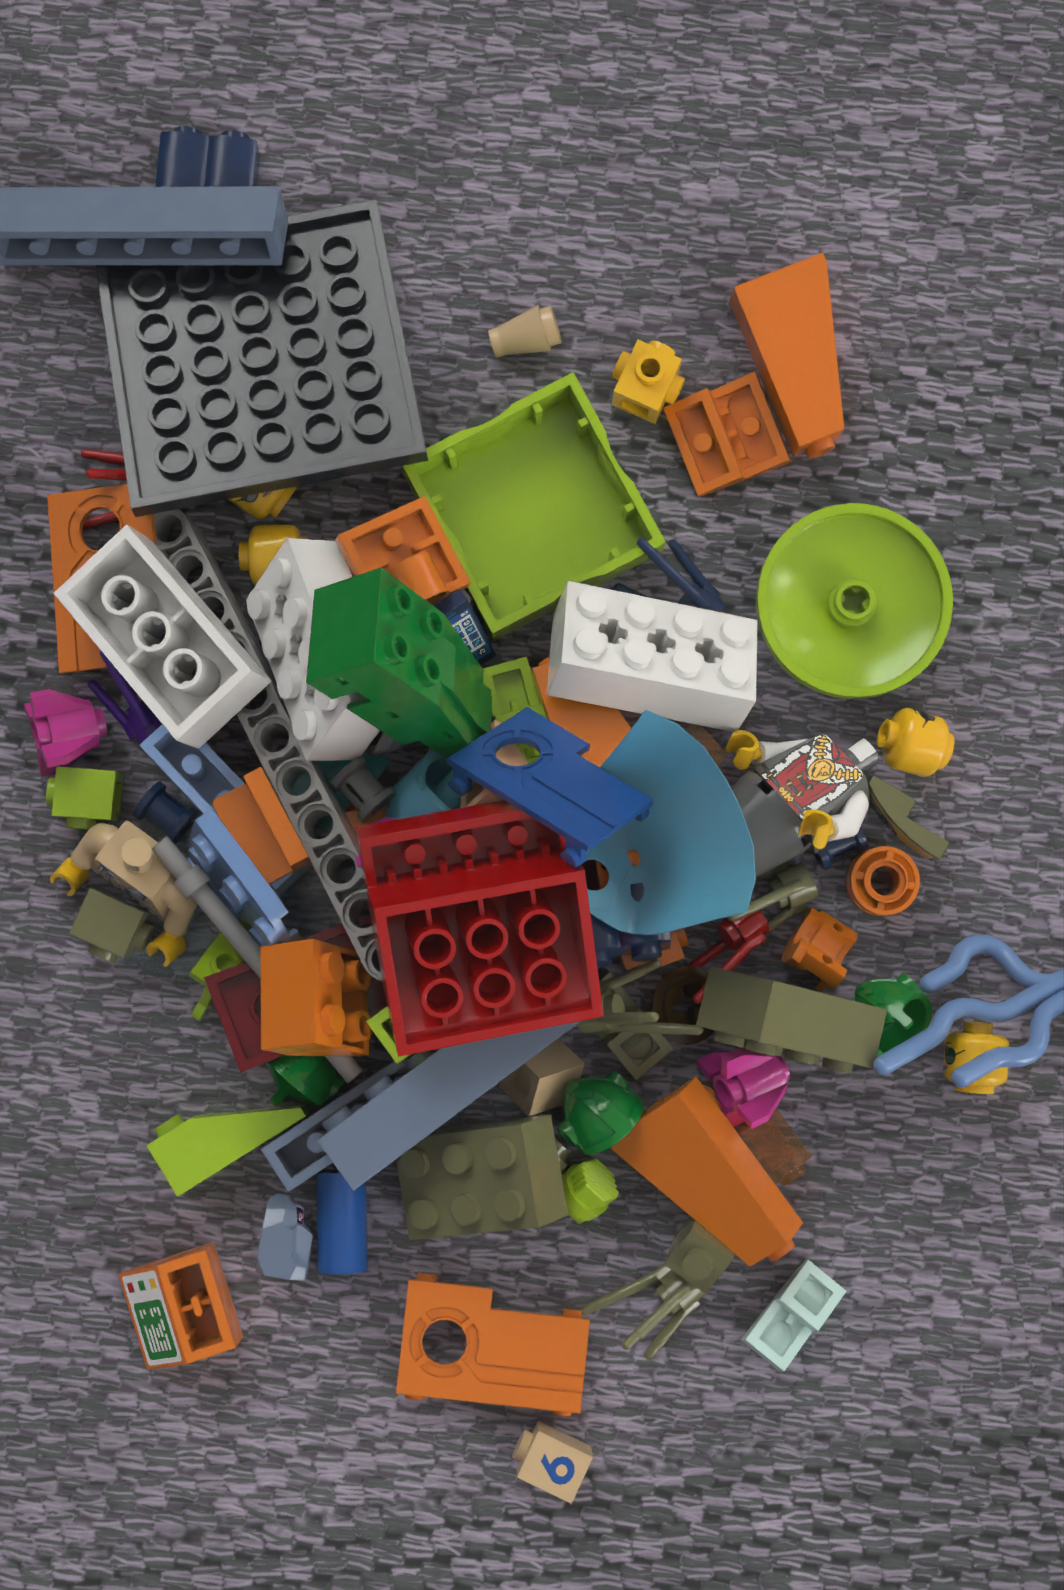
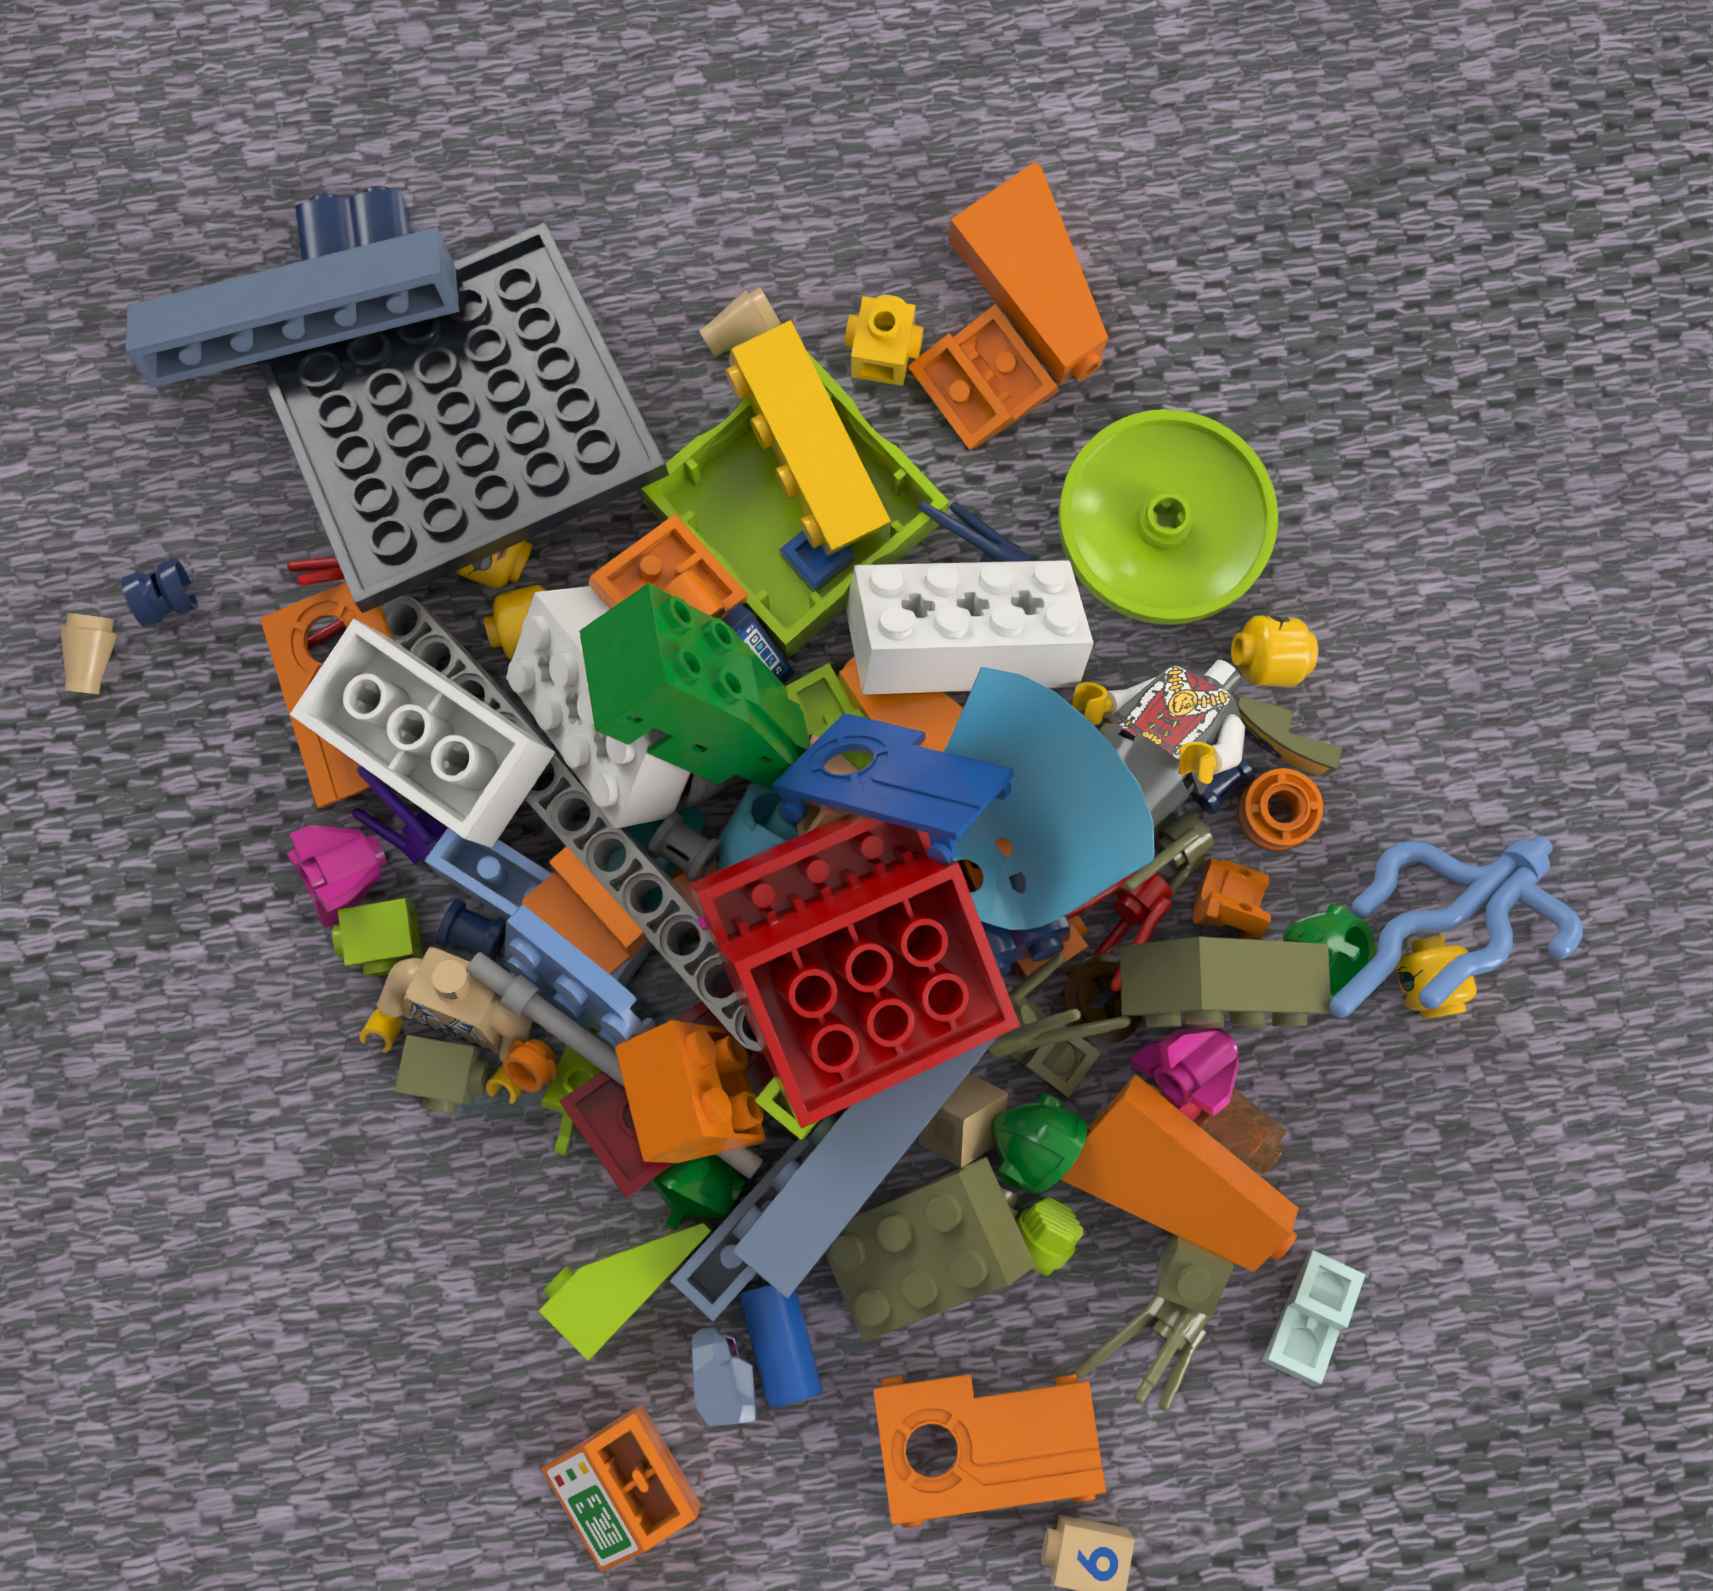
camera: 10 degrees left, 5 degrees down
(188, 939) = (530, 1064): none -> orange plate
(541, 557) = (812, 564): none -> blue tile
(556, 457) = (807, 439): none -> yellow brick

